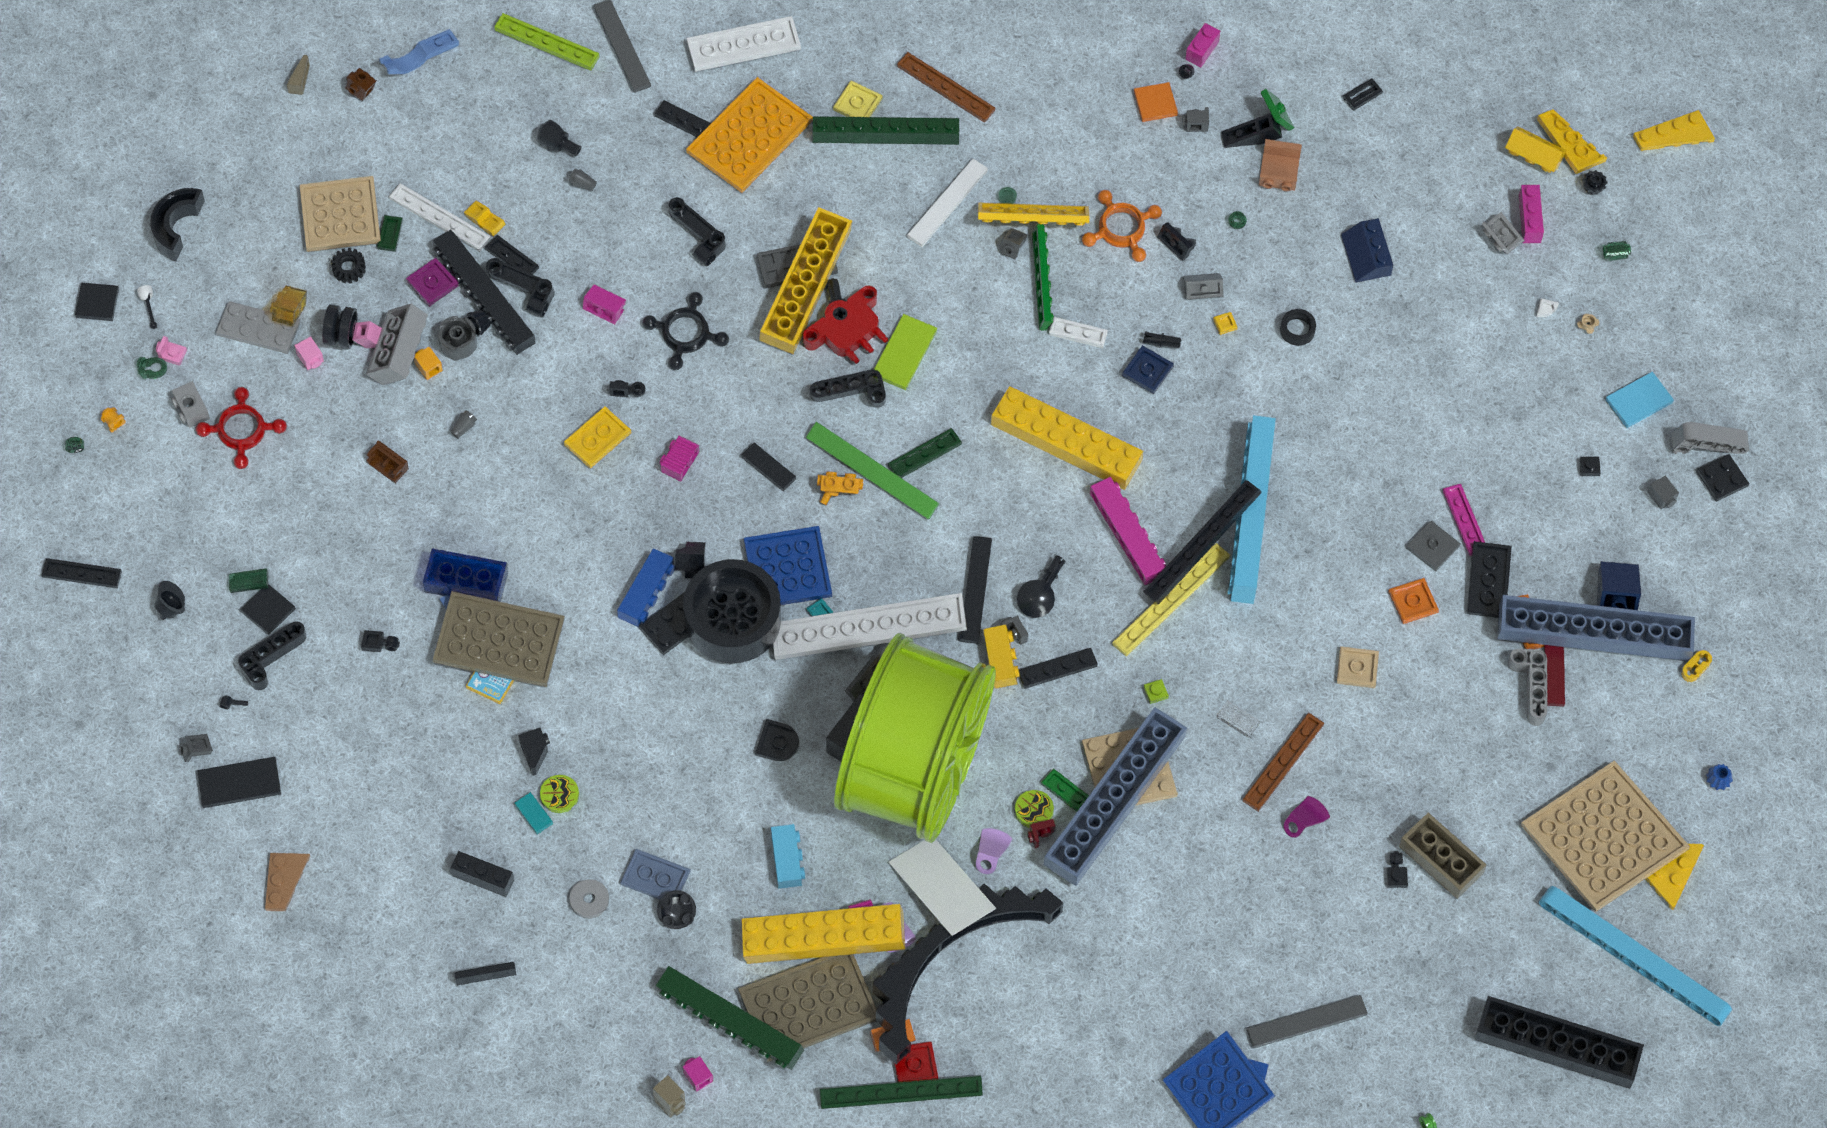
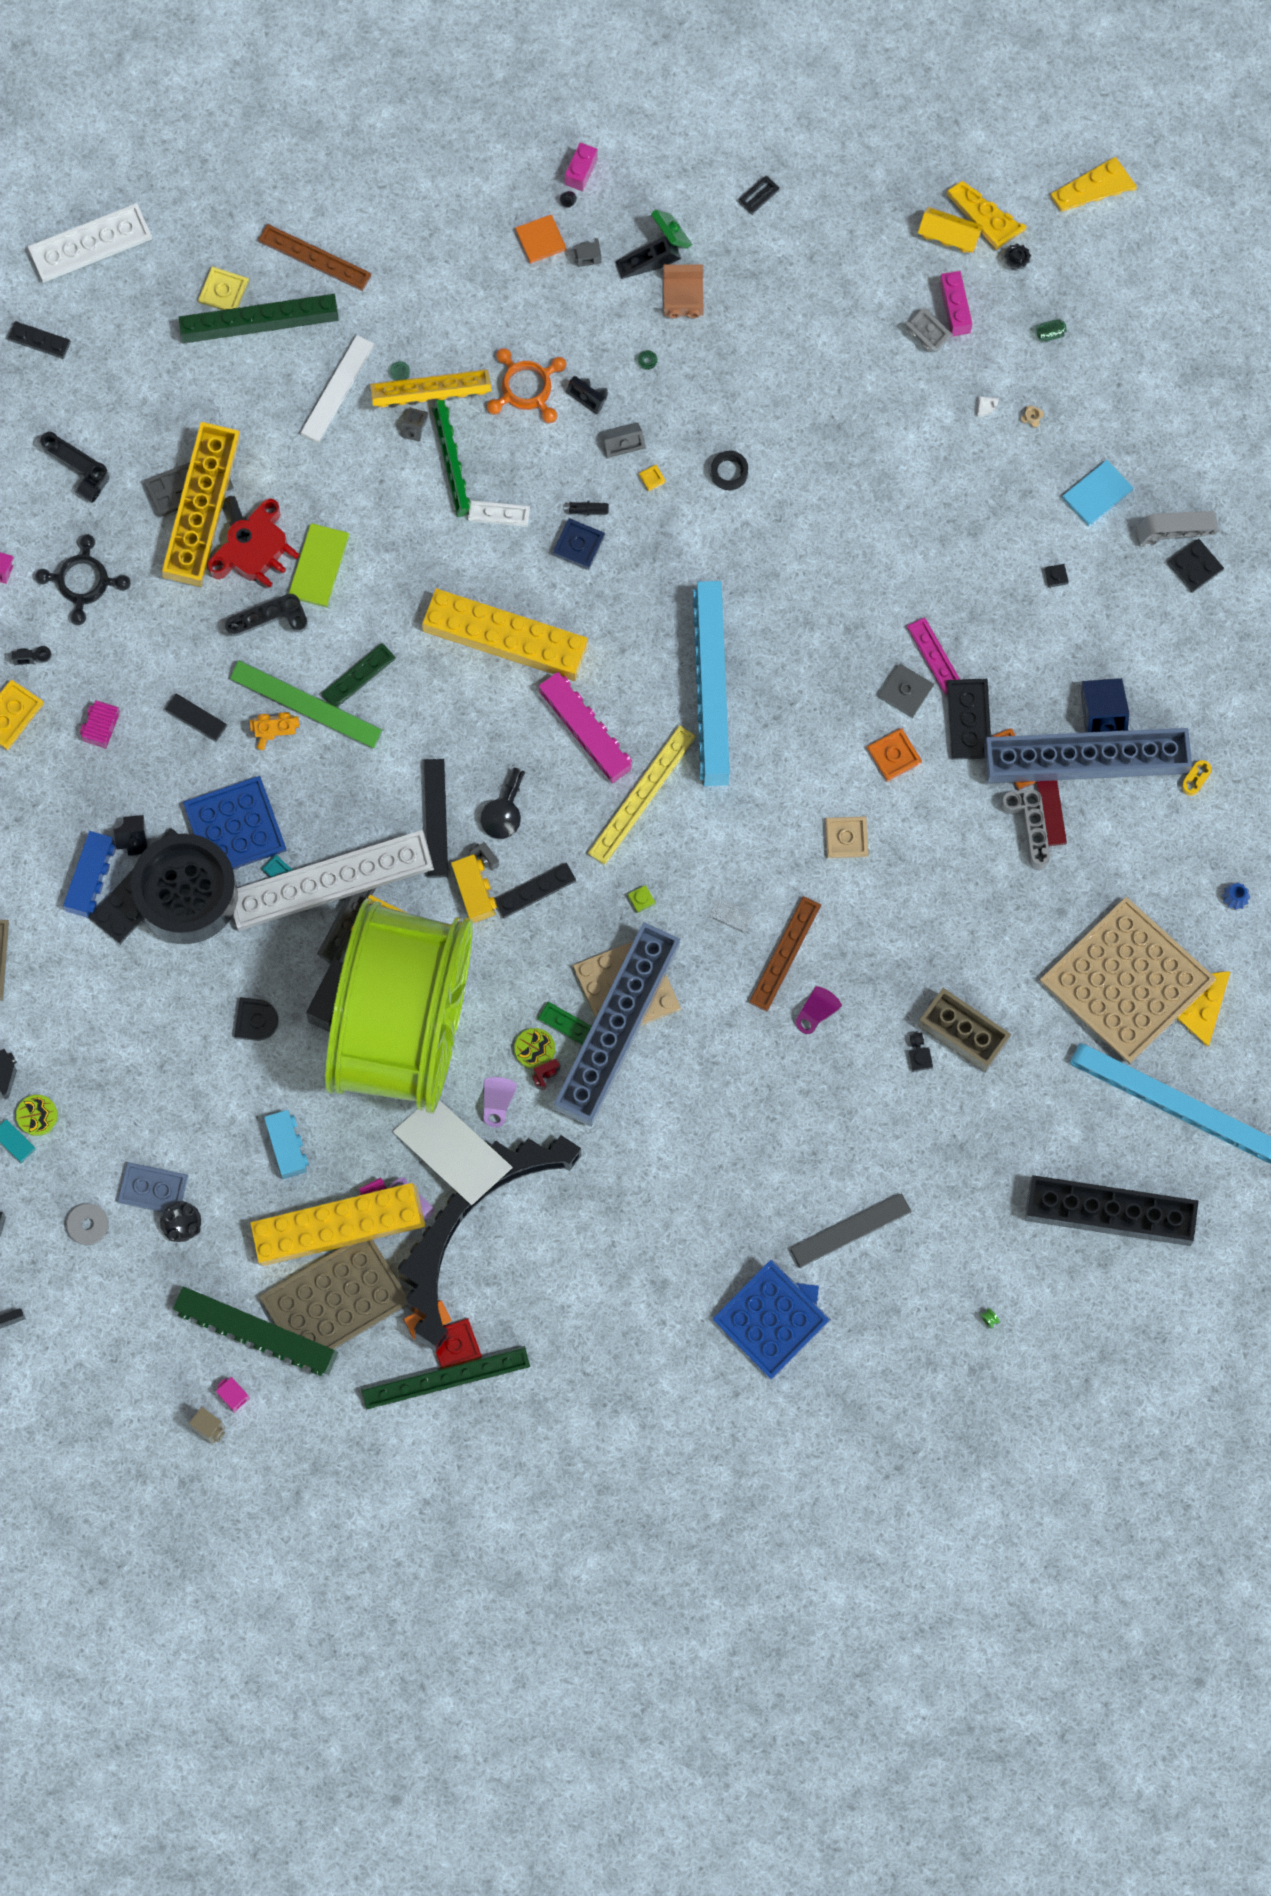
camera: 10 degrees left, 10 degrees up
(749, 135) = (113, 346): light orange plate -> none
(1202, 542) = (665, 730): black plate -> none
(1367, 251) = (790, 373): dark blue slope -> none
(1663, 492) = (1137, 593): dark grey brick -> none

